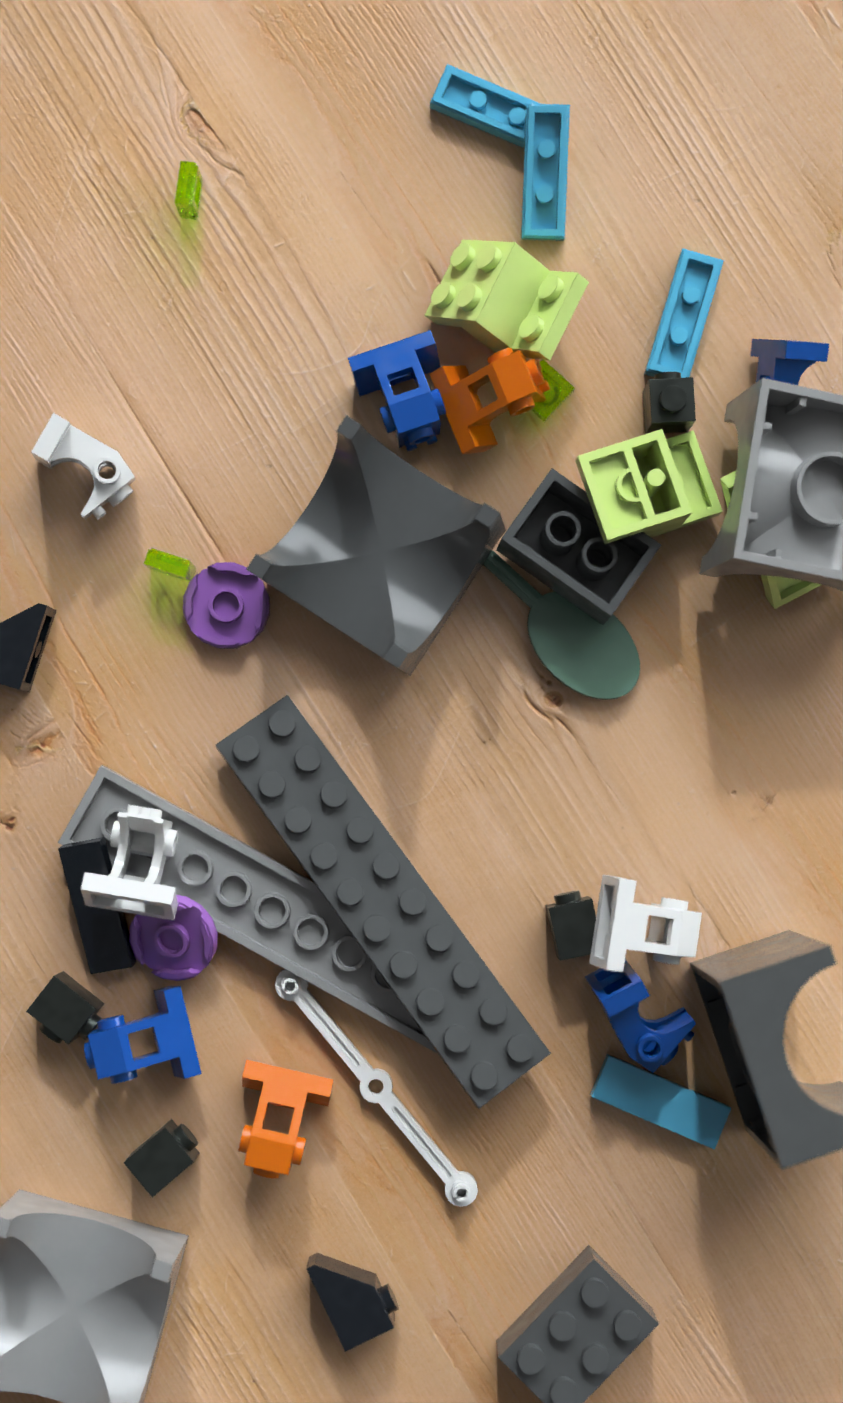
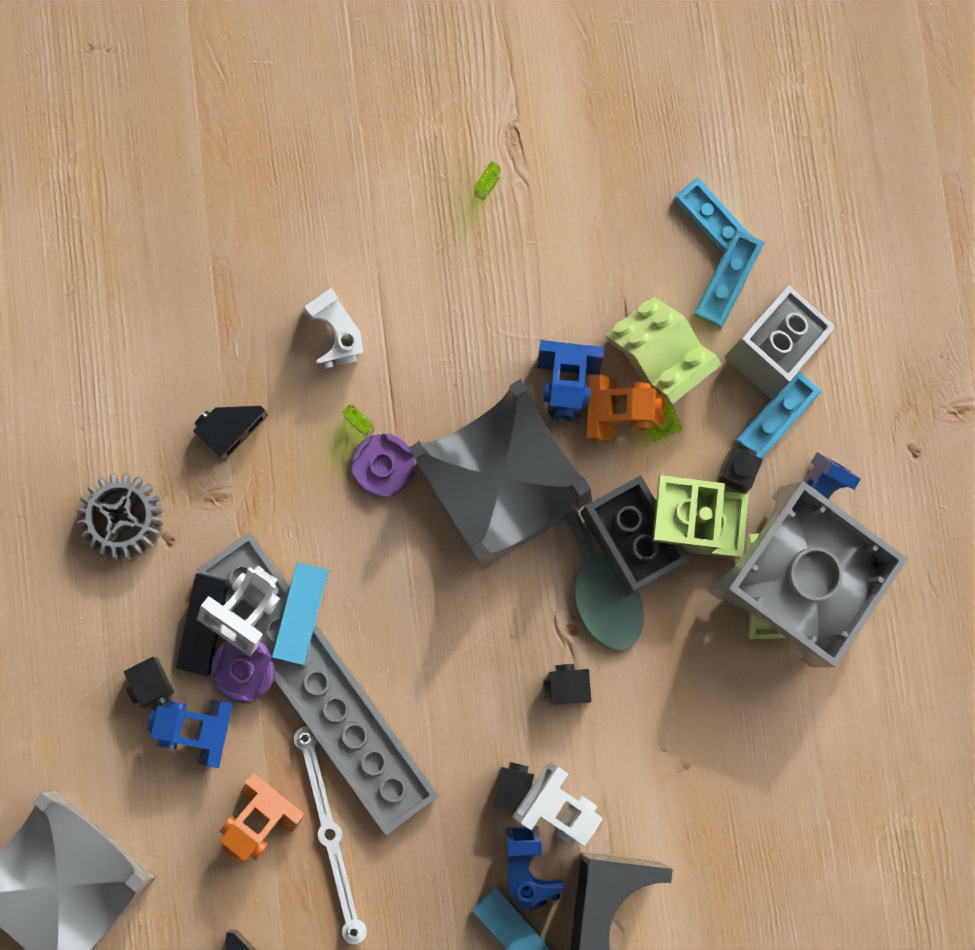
camera: 15 degrees right, 5 degrees down
(163, 1156) = (166, 812): pearl dark grey brick -> none
(211, 837) = (300, 613): none -> medium azure tile
(383, 901) = (394, 711): dark grey plate -> none
(581, 770) = (567, 685): none -> pearl dark grey brick
(645, 223) = (780, 342): none -> light grey slope

